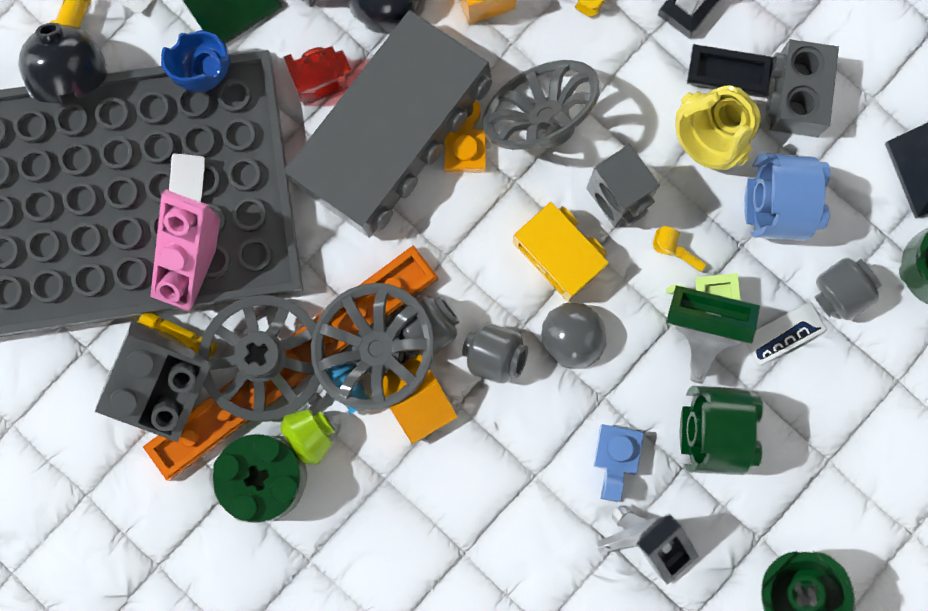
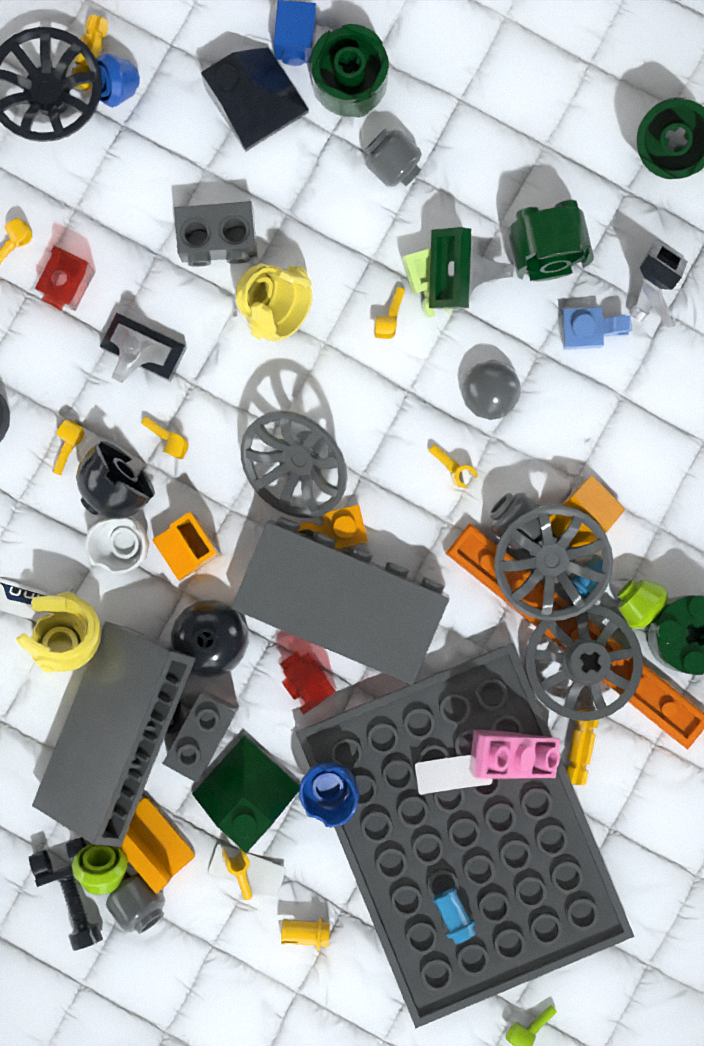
camera: 110 degrees left, 5 degrees up
(39, 158) = (454, 916): none -> dark azure pin
(60, 62) = (361, 922): black cylinder -> none
(153, 382) = (632, 753): dark grey slope -> none
(495, 353) = (527, 454): dark grey head -> none
(502, 275) = (452, 466): none -> yellow hand
(560, 250) = (421, 417): yellow brick -> none
(623, 187) = (354, 372): dark grey brick -> none
(724, 67) = (211, 303): black tile -> none
(785, 333) = (441, 202): white sticker -> none
(787, 197) = (326, 226): medium blue brick -> none

